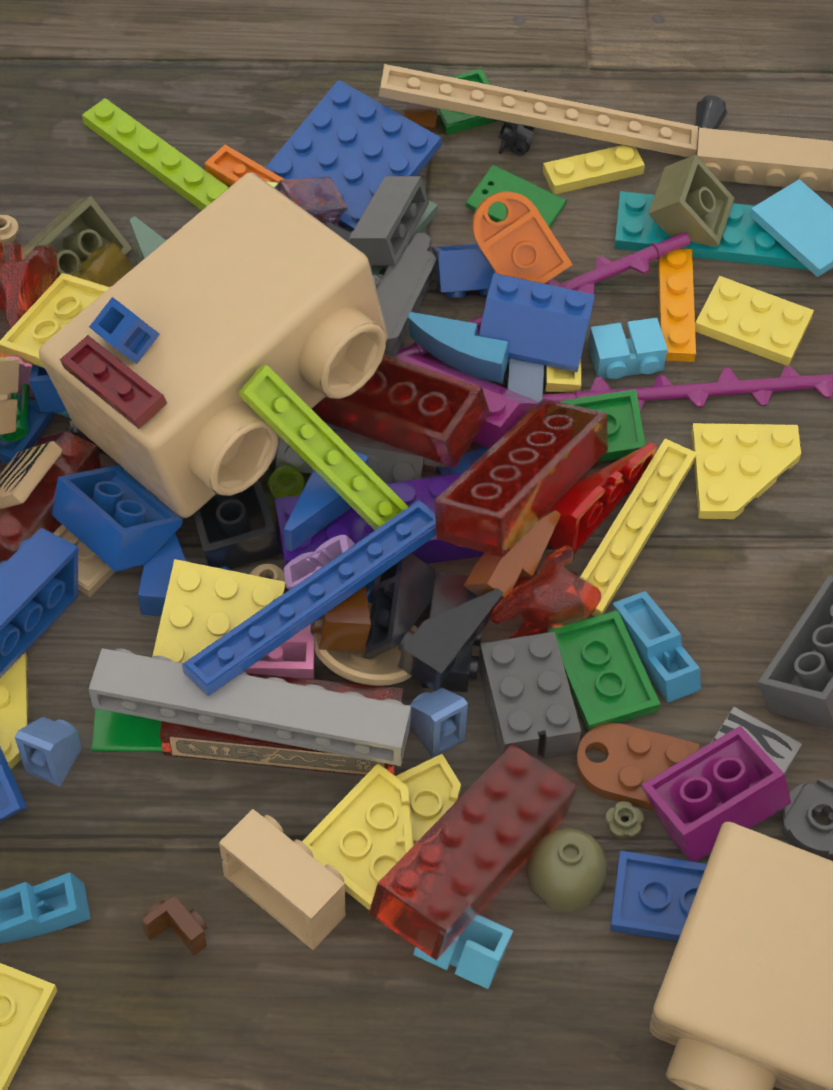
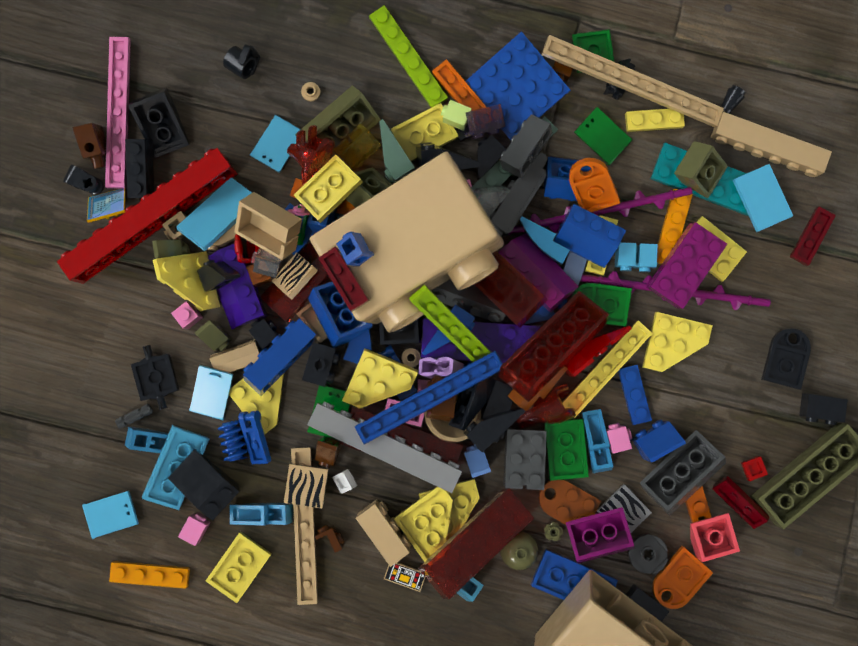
camera: 15 degrees right, 30 degrees up
(48, 749) = (286, 433): medium blue slope -> none
(97, 609) = (321, 365): none -> black brick
(106, 831) = (306, 486): none -> tan tile
(118, 923) = (304, 540): none -> tan plate
(138, 748) = (327, 451): none -> reddish brown slope
(183, 814) = (344, 481): none -> white plate
(347, 970) = (405, 576): none -> tile
(697, 627) = (618, 438): none -> bright pink brick
(700, 560) = (634, 394): none -> blue plate
(716, 335) = (686, 265): none -> magenta brick
(767, 615) = (657, 441): none -> blue slope

